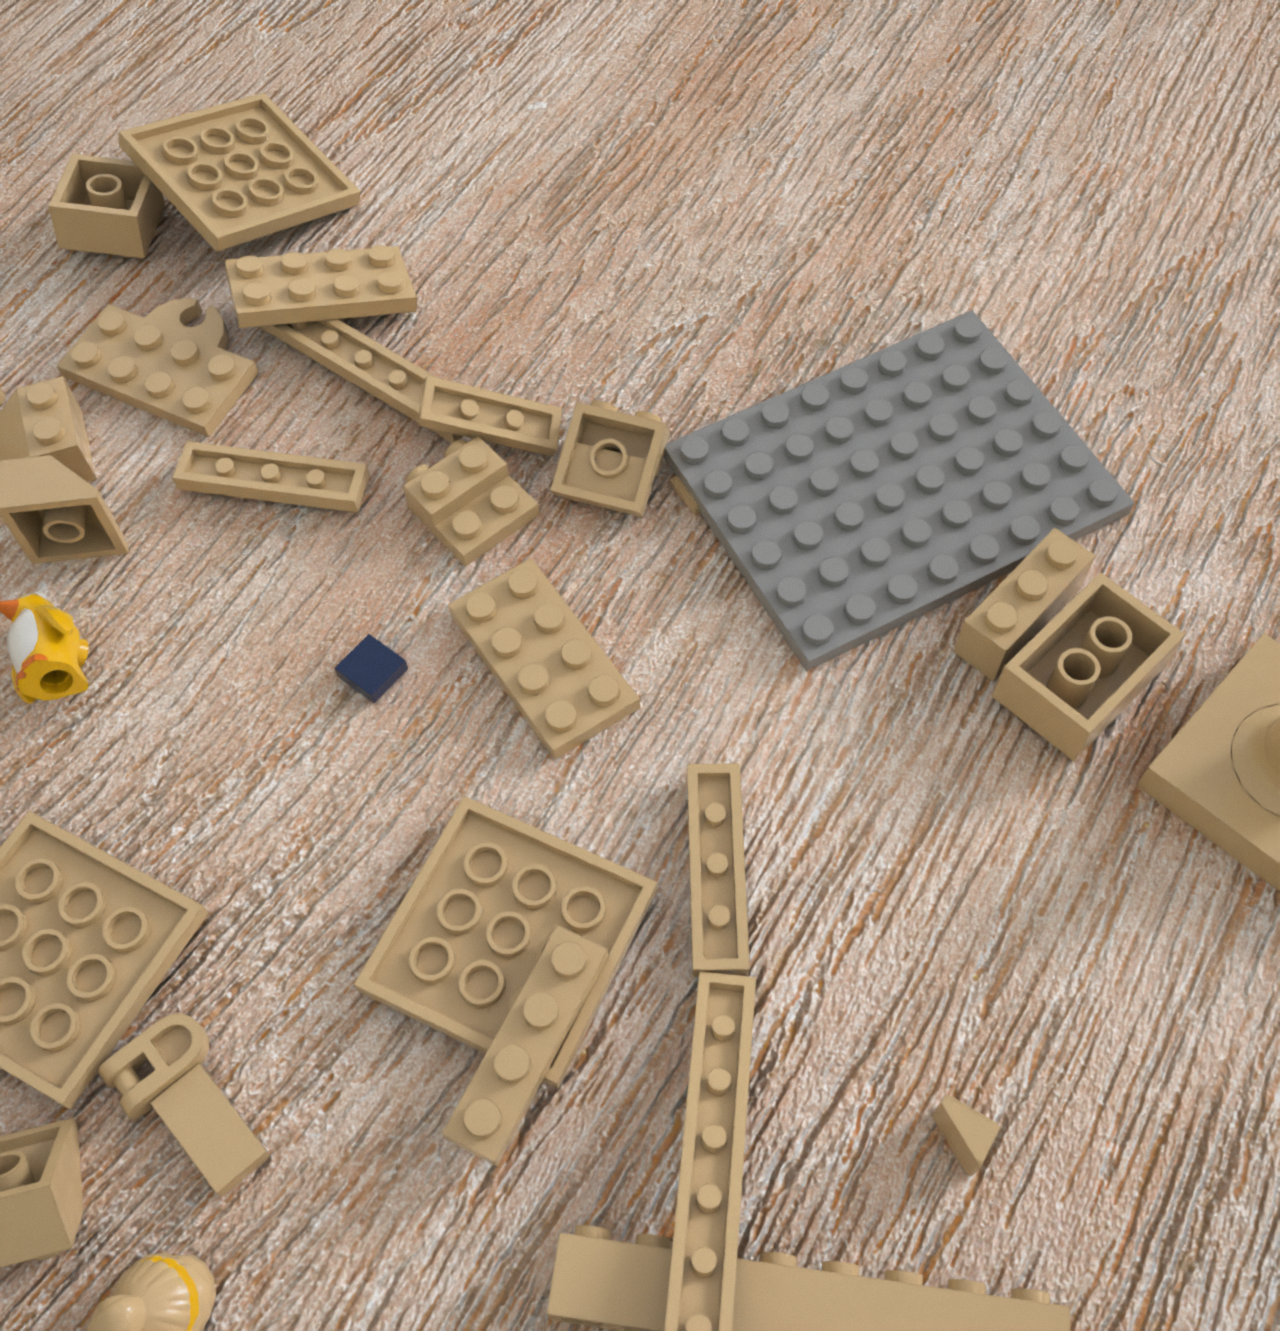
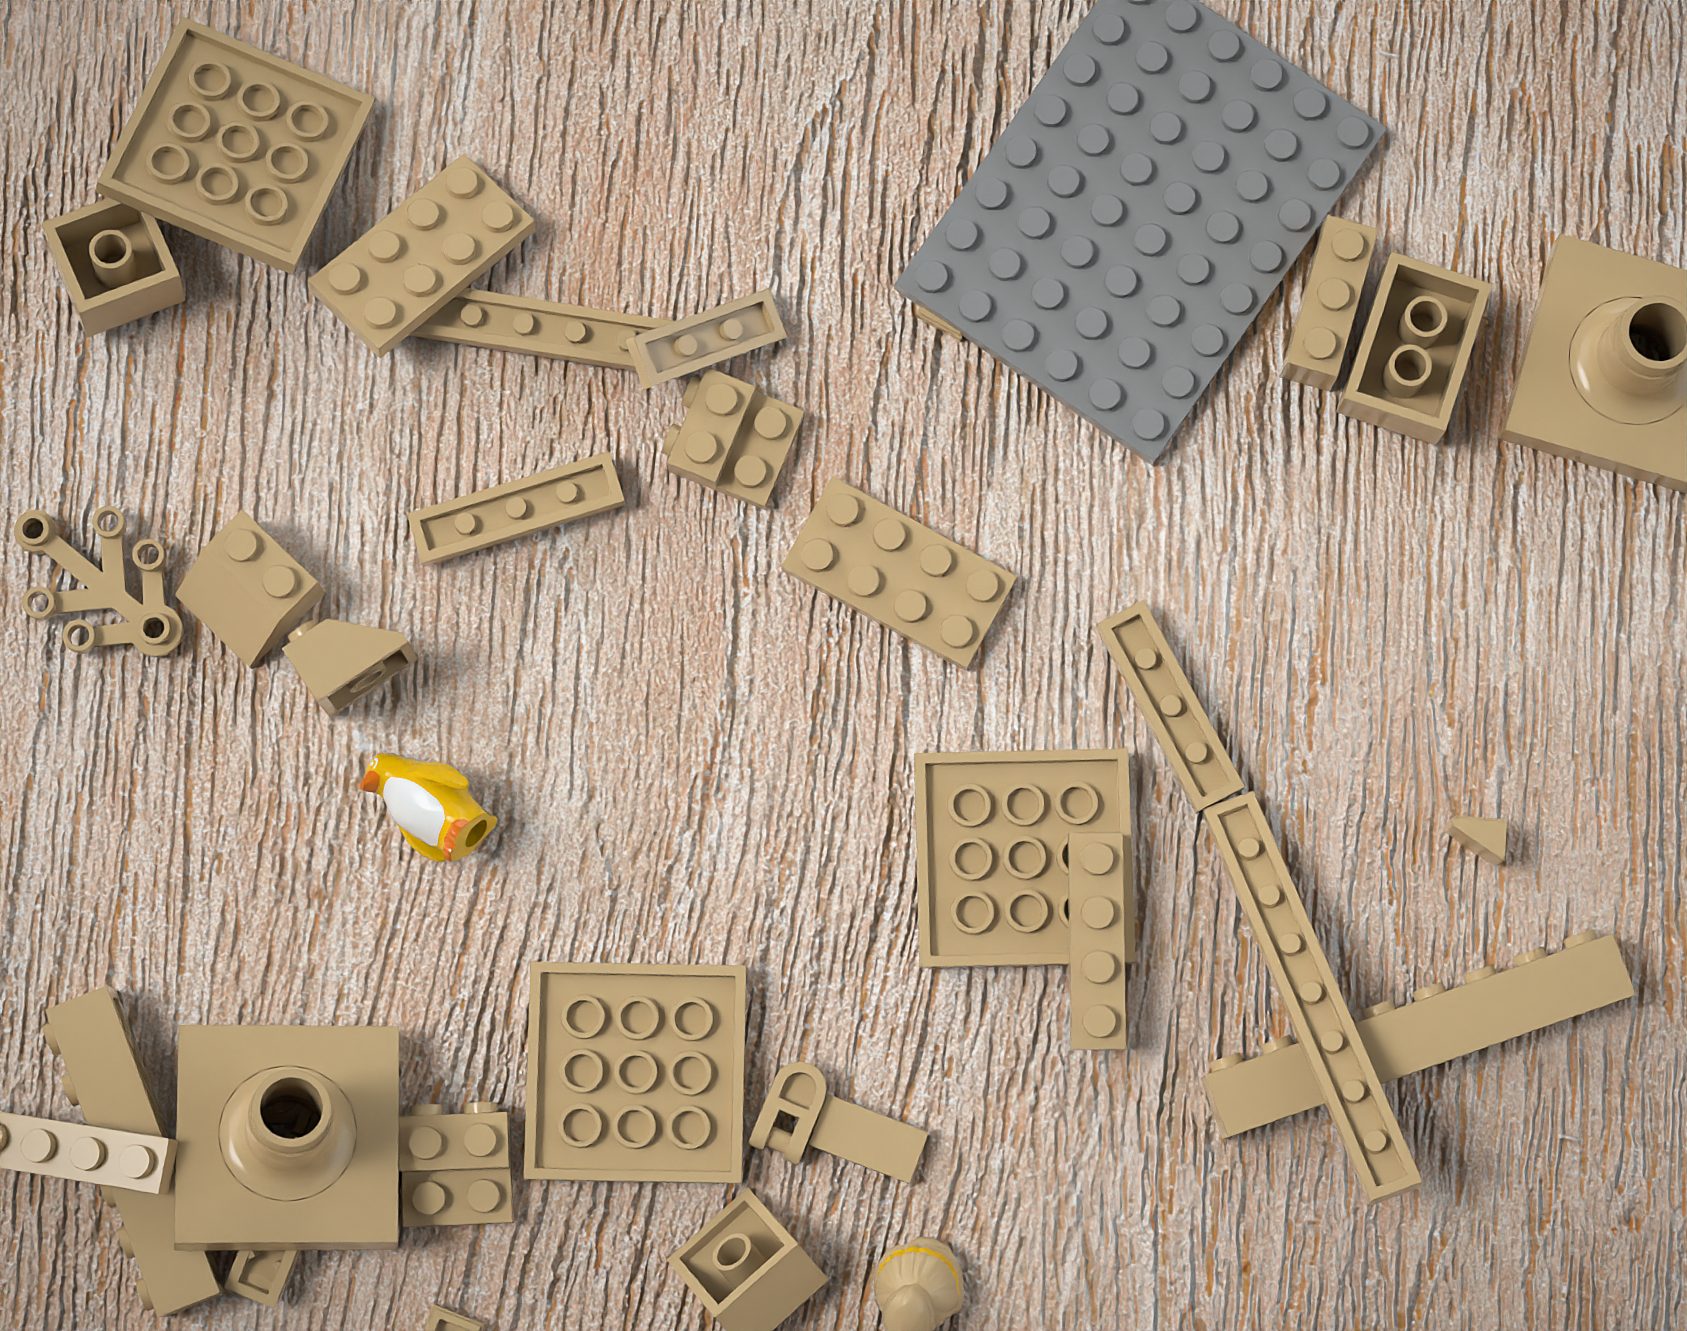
camera: 30 degrees left, 20 degrees up
(163, 363) = (301, 426): tan plate -> none
(371, 668) = (745, 666): dark blue tile -> none
(610, 457) = (851, 325): tan plate -> none

